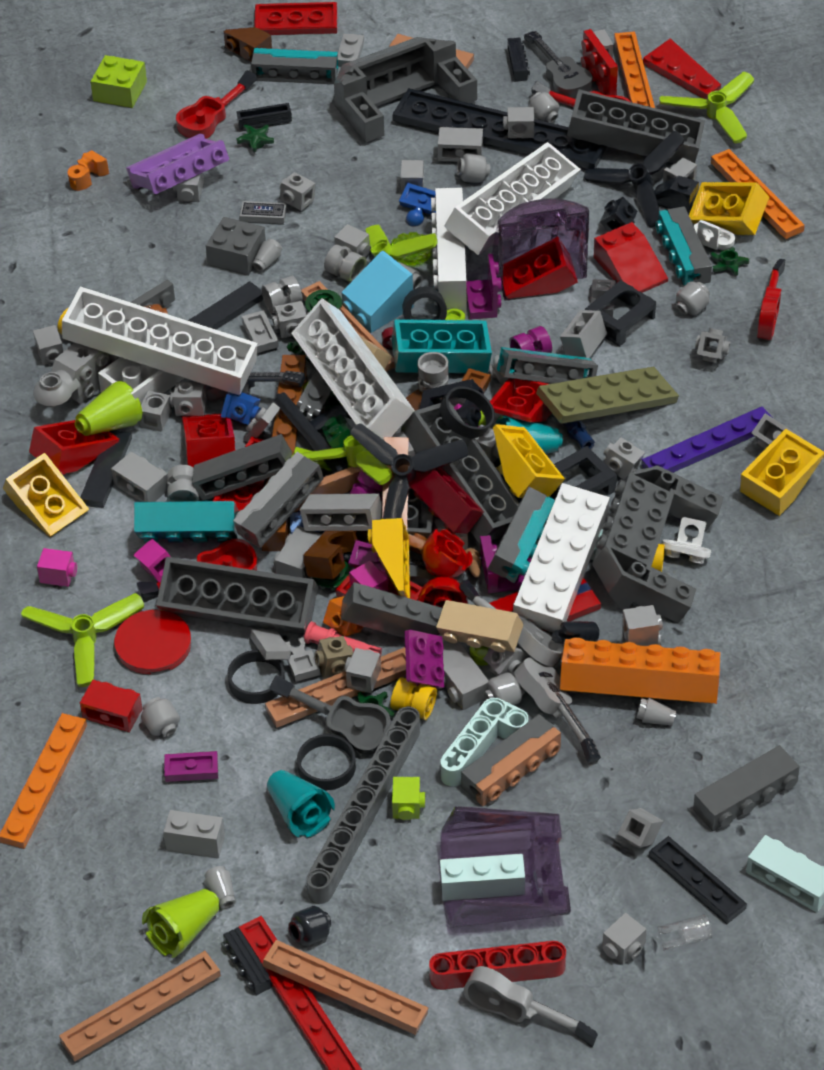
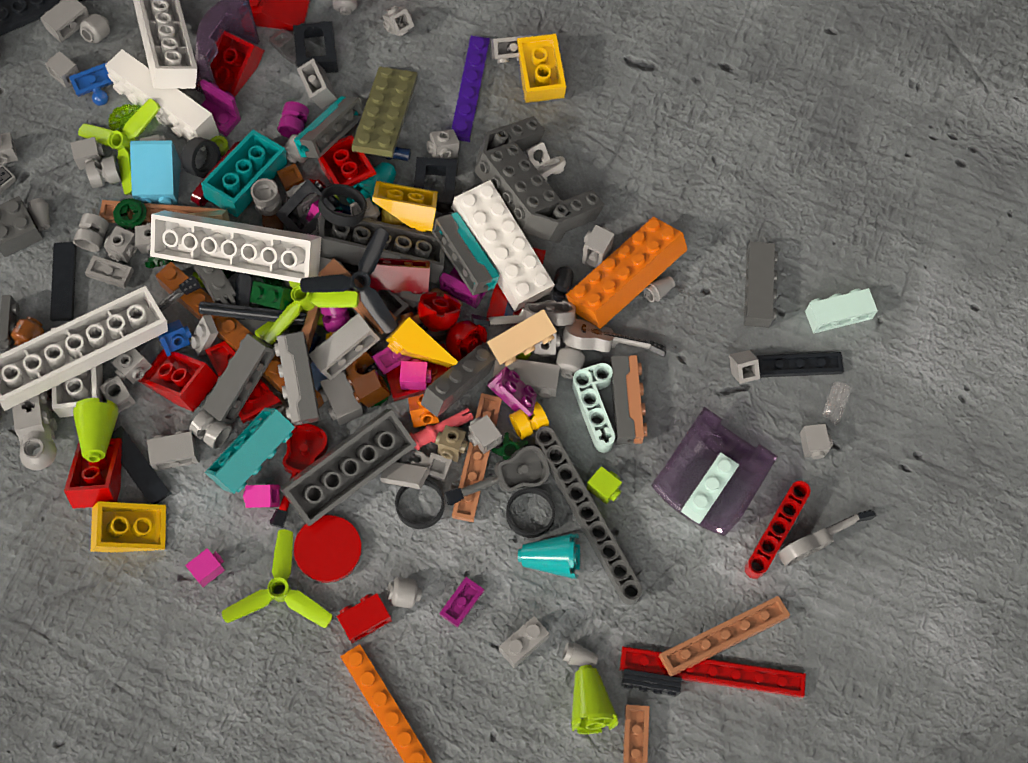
camera: 55 degrees left, 20 degrees up
(309, 926) = (658, 622): black head -> none

